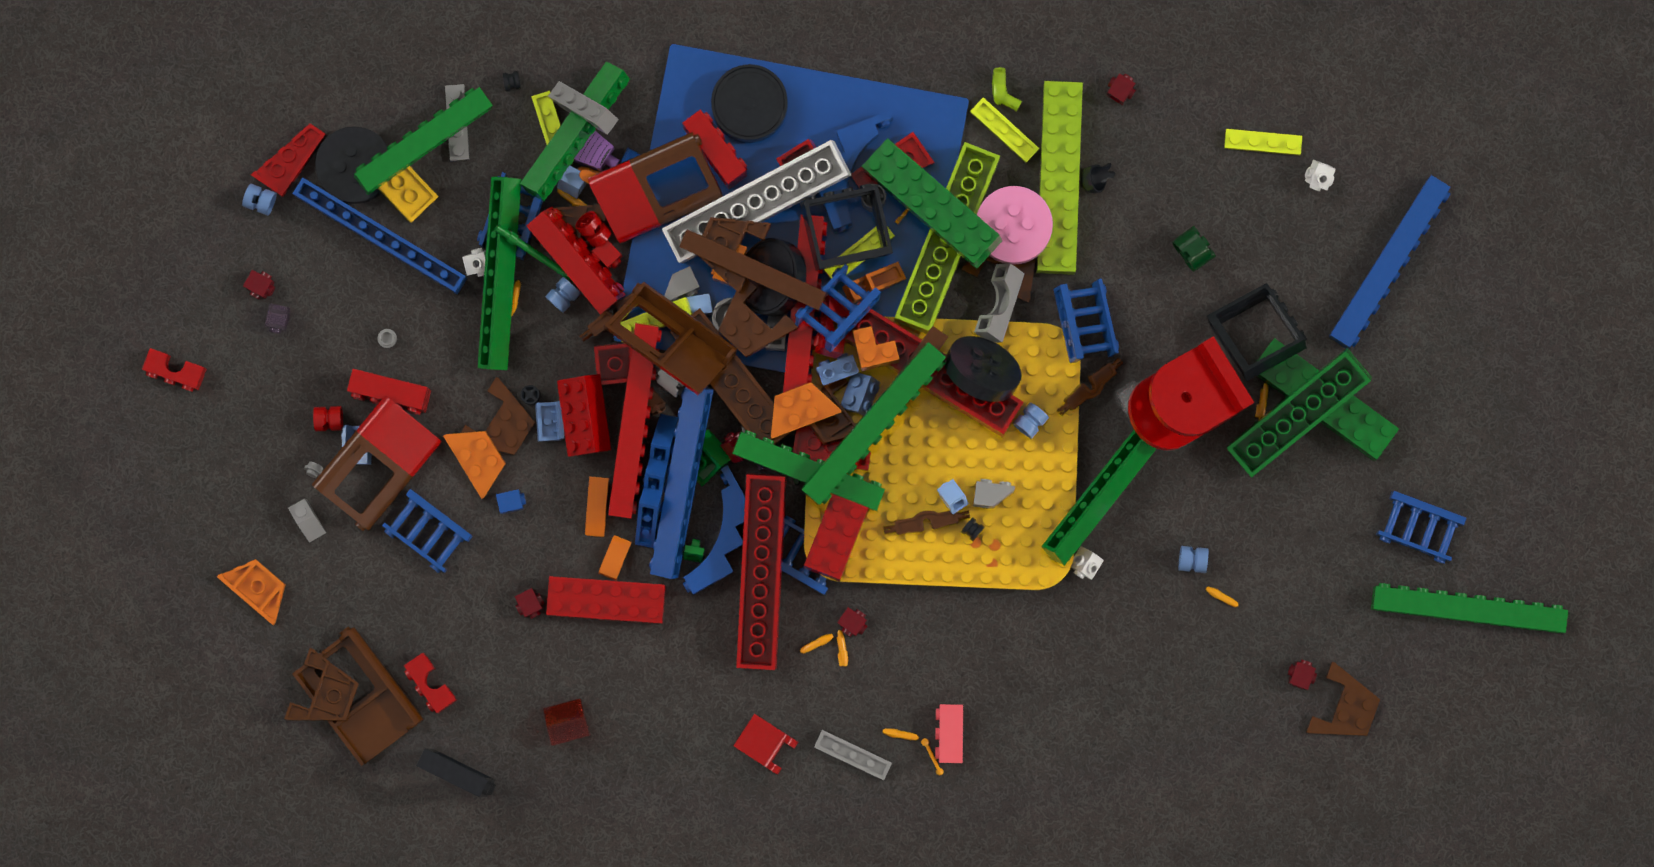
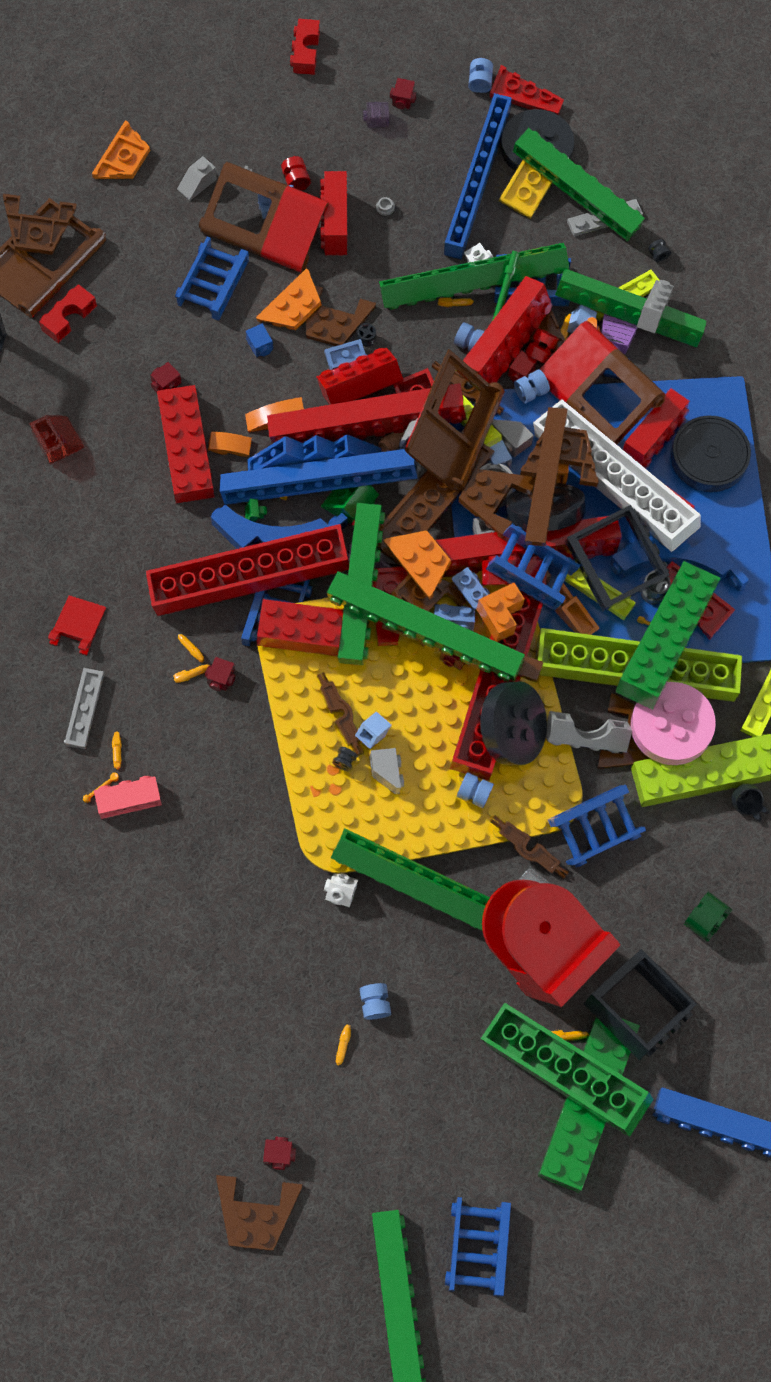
camera: 70 degrees right, 15 degrees down
(631, 245) = (533, 385): none -> medium blue wheel

